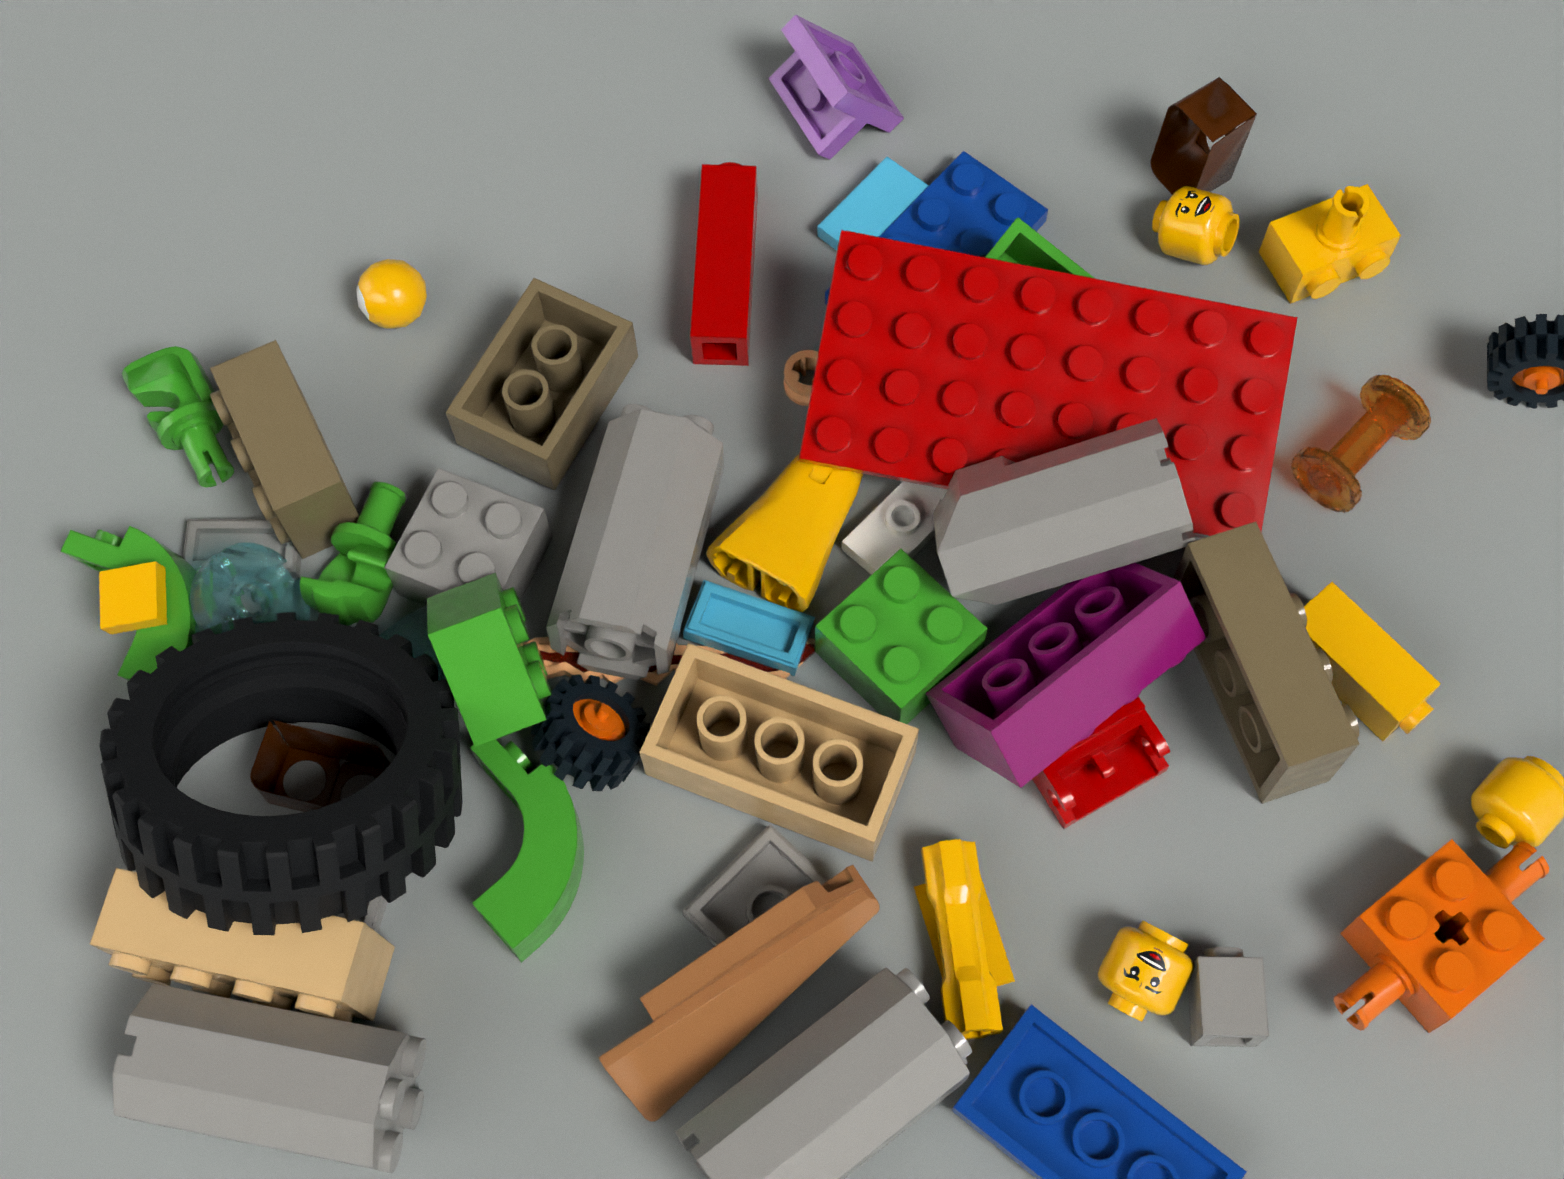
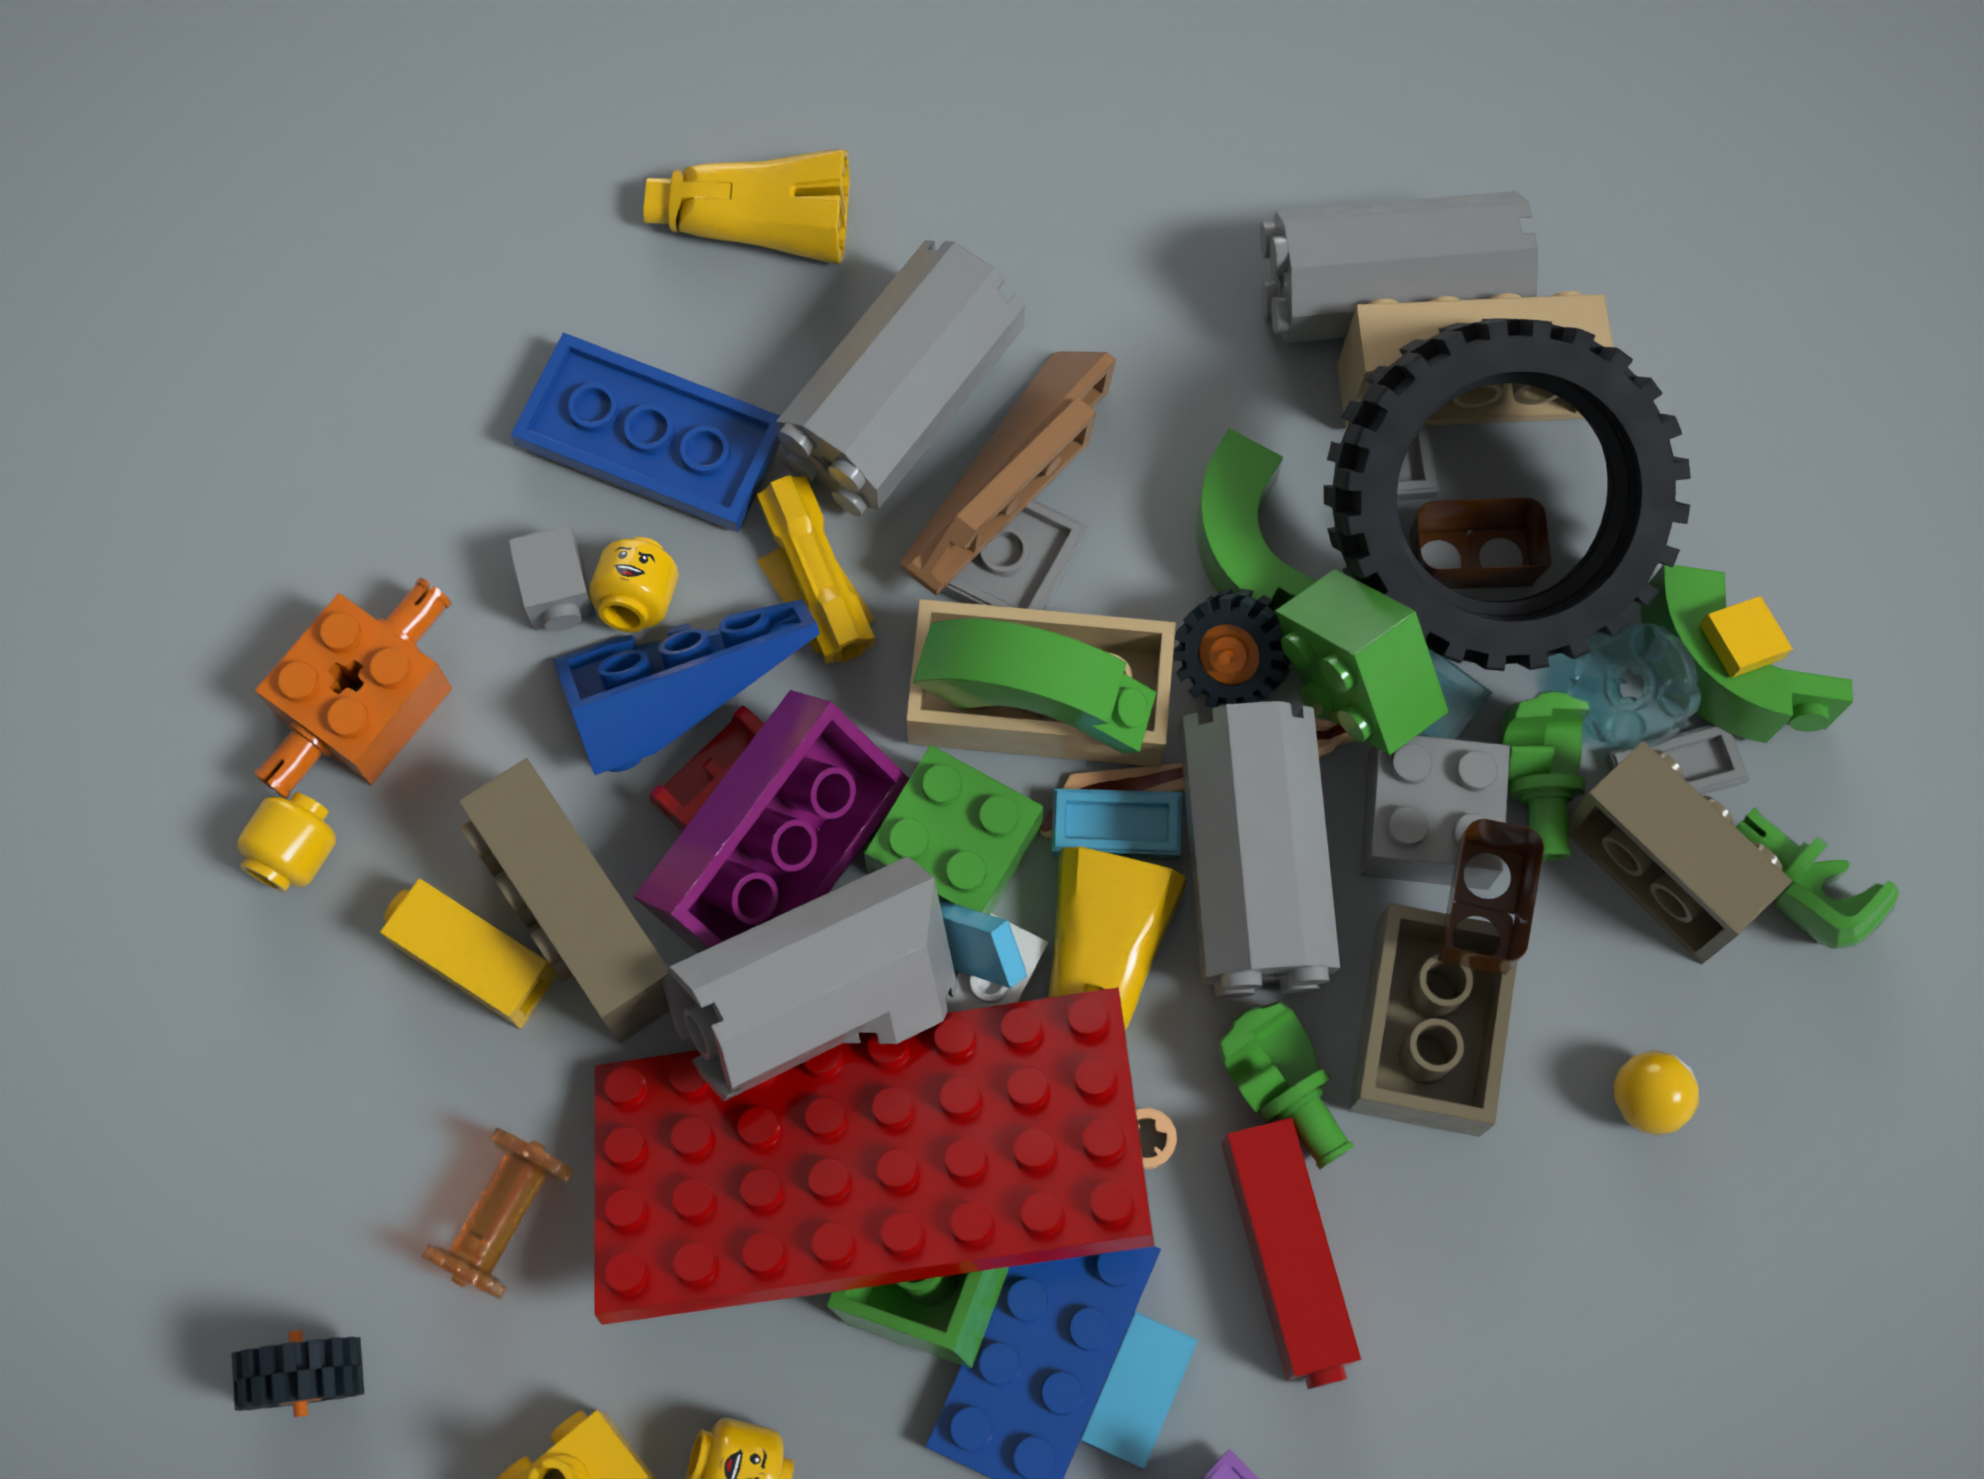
camera: 160 degrees right, 5 degrees up
(463, 380) = (1523, 853): none -> reddish brown piece
(683, 371) = (1281, 1077): none -> bright green piece
(803, 699) = (1036, 671): none -> bright green arch
(909, 528) = (982, 945): none -> medium azure tile
(1135, 858) = (647, 695): none -> blue wedge

